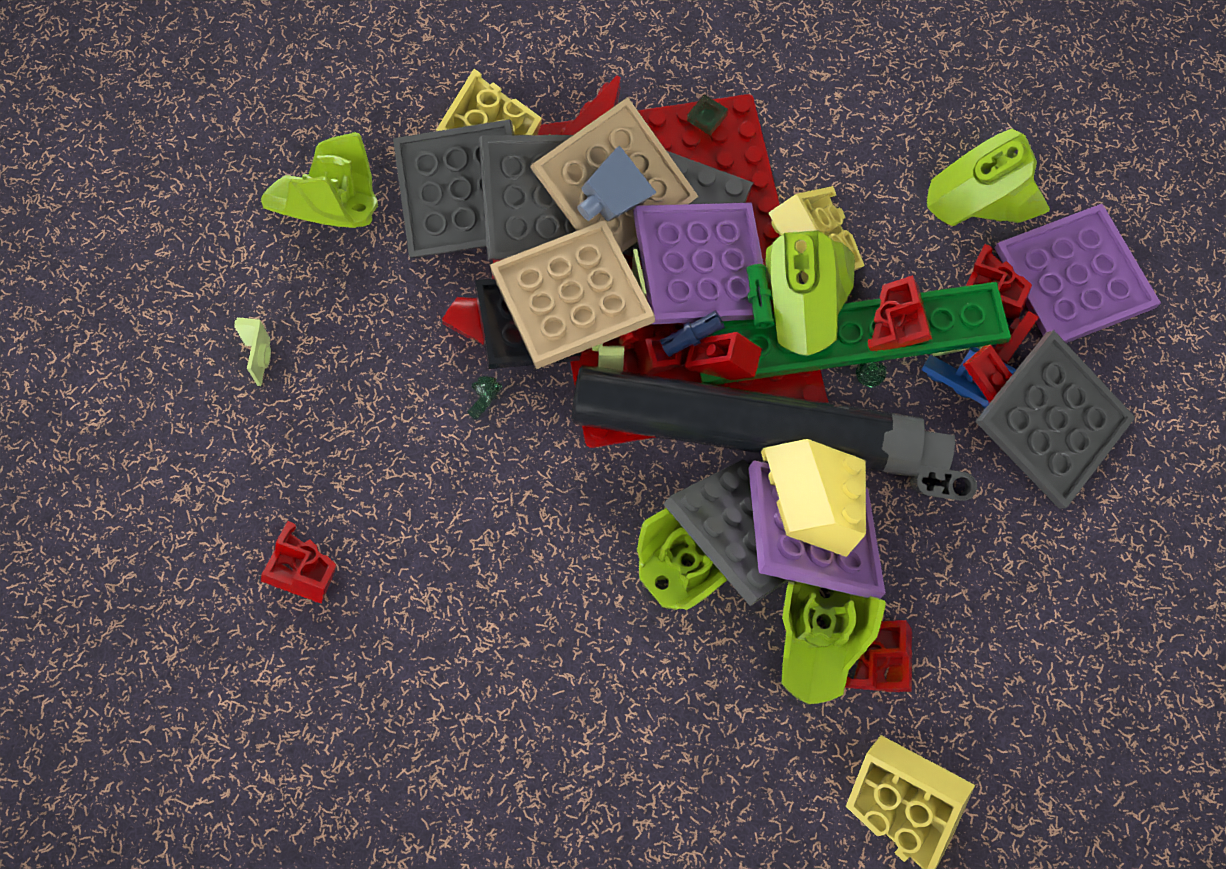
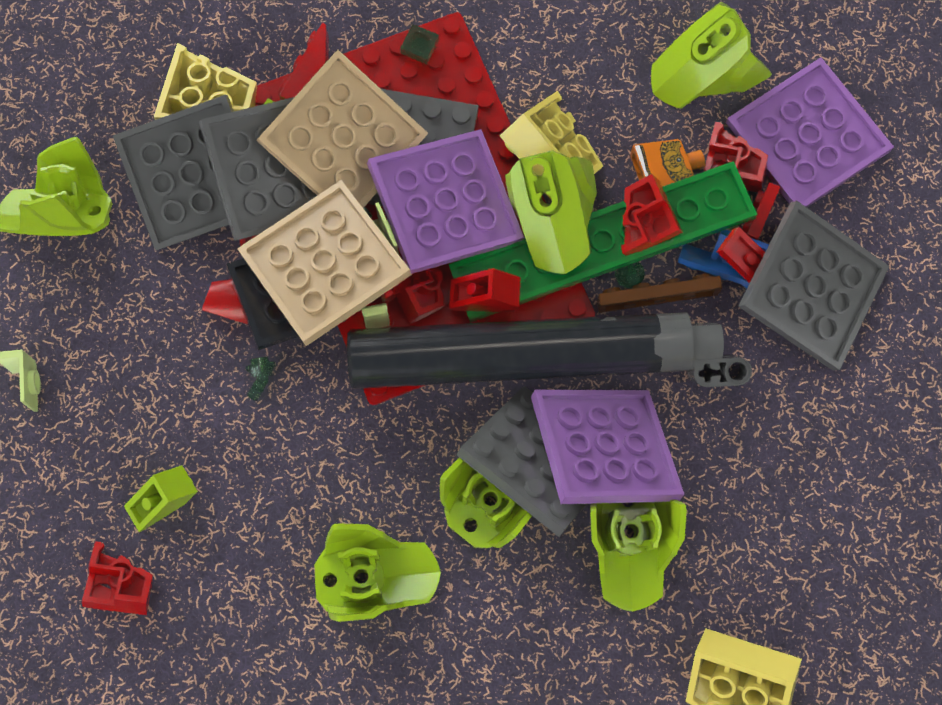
camera: 10 degrees left, 5 degrees up
(361, 490) = (160, 497): none -> lime slope
(578, 612) = (396, 571): none -> lime piece
(614, 188) = (343, 145): sand blue torso -> none
(692, 333) = (450, 275): dark blue pin -> none
(762, 314) = (502, 207): green pin -> none
(819, 494) = (603, 411): light yellow wedge -> none
(891, 650) = (699, 544): red slope -> none
(906, 397) = (669, 291): none -> reddish brown plate
(929, 269) = (665, 161): none -> torso

